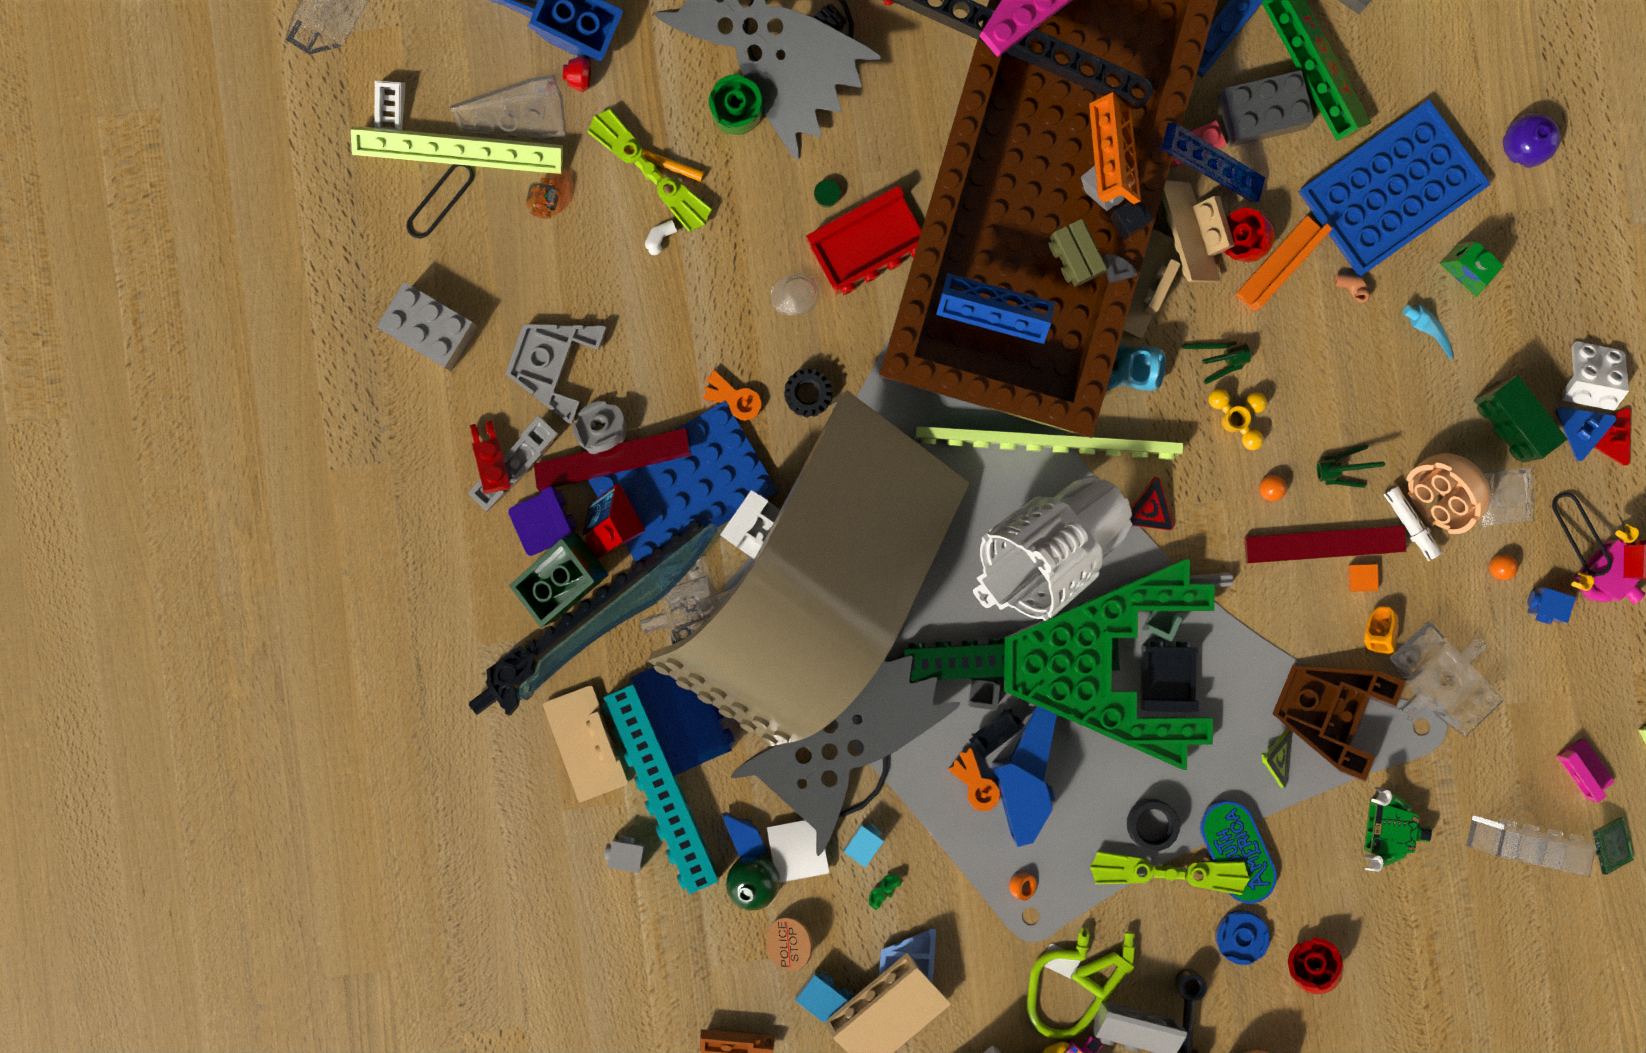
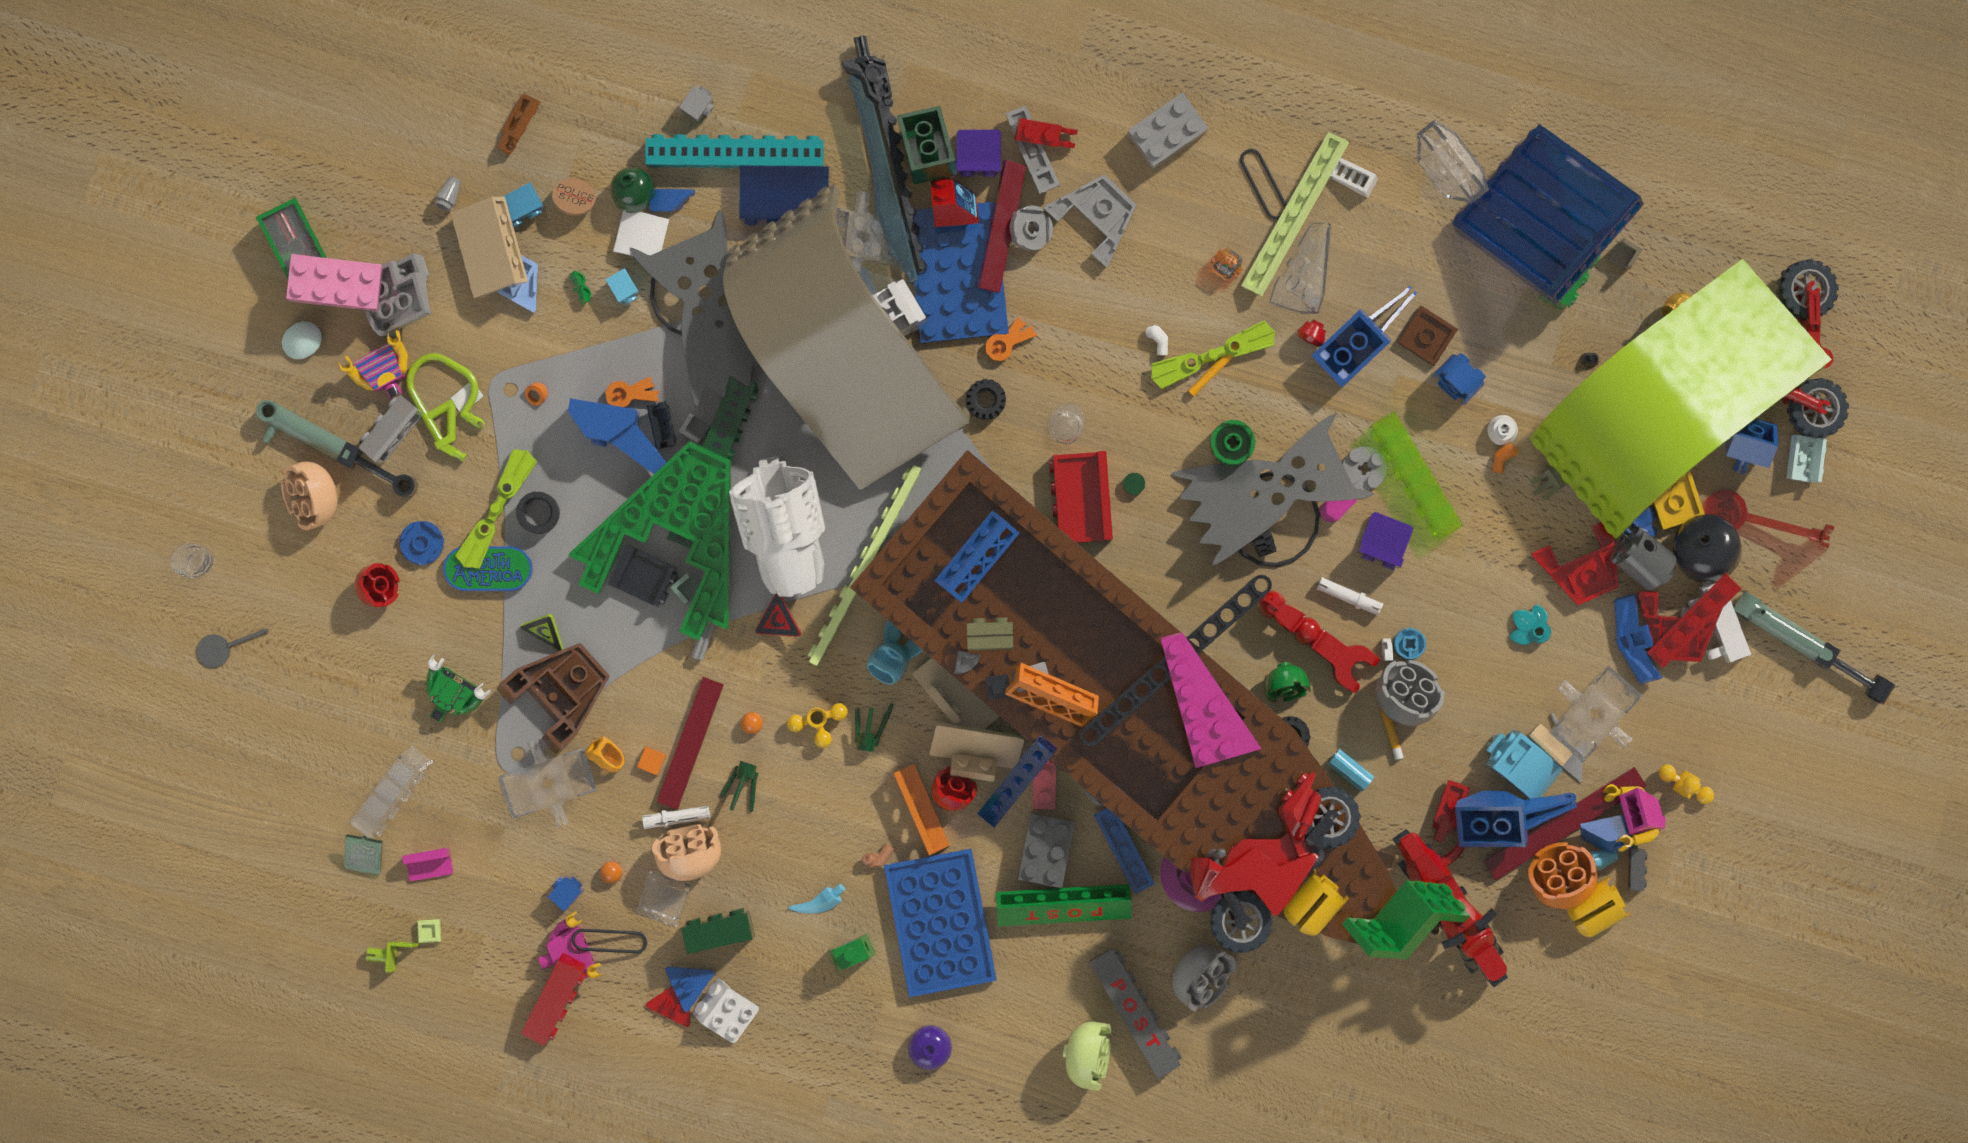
camera: 110 degrees right, 0 degrees up
(585, 743) = (794, 110): tan bracket -> none

